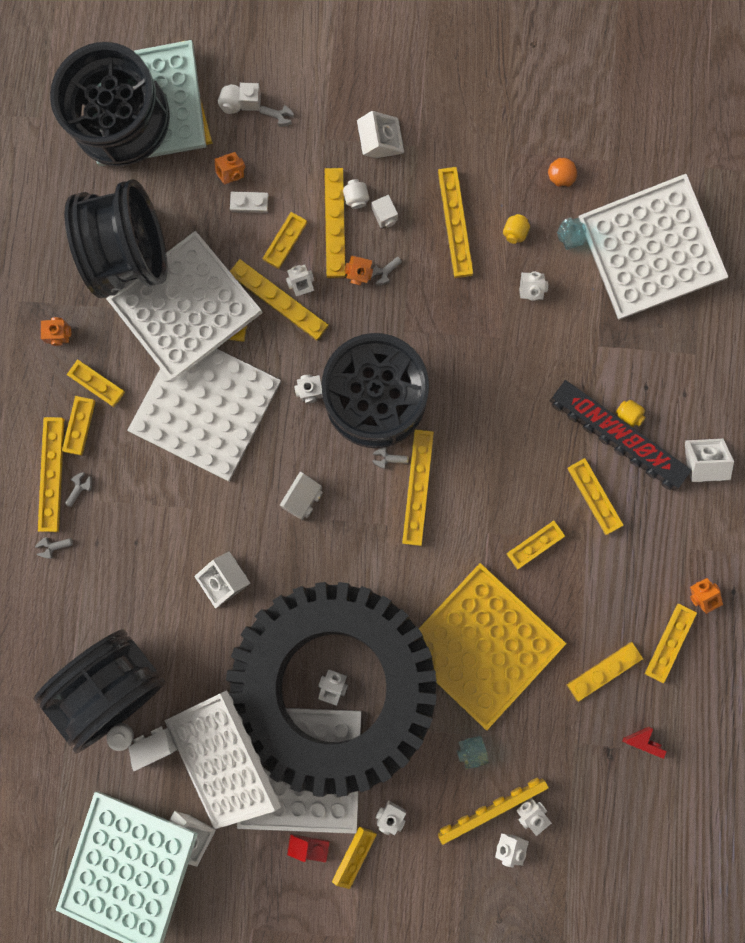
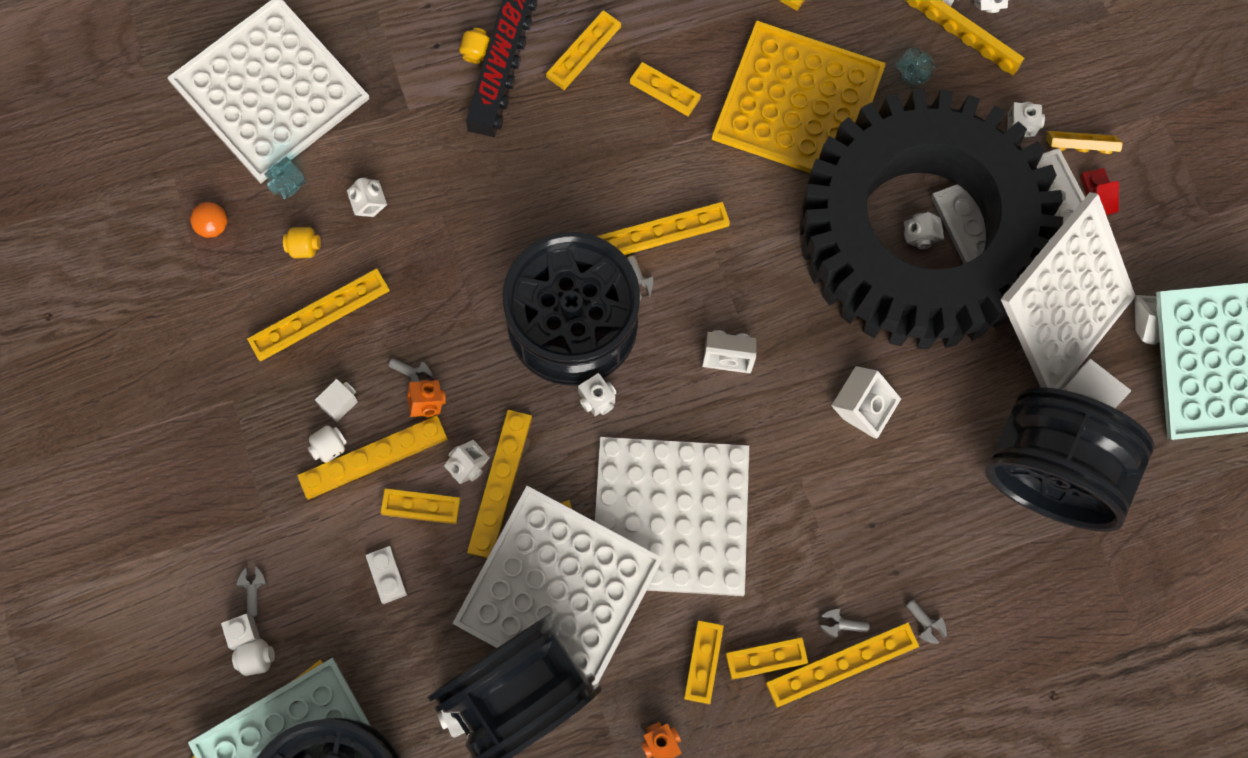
camera: 120 degrees left, 10 degrees down
(229, 168) = (351, 614): orange brick -> none
(380, 135) = (237, 447): white slope -> none

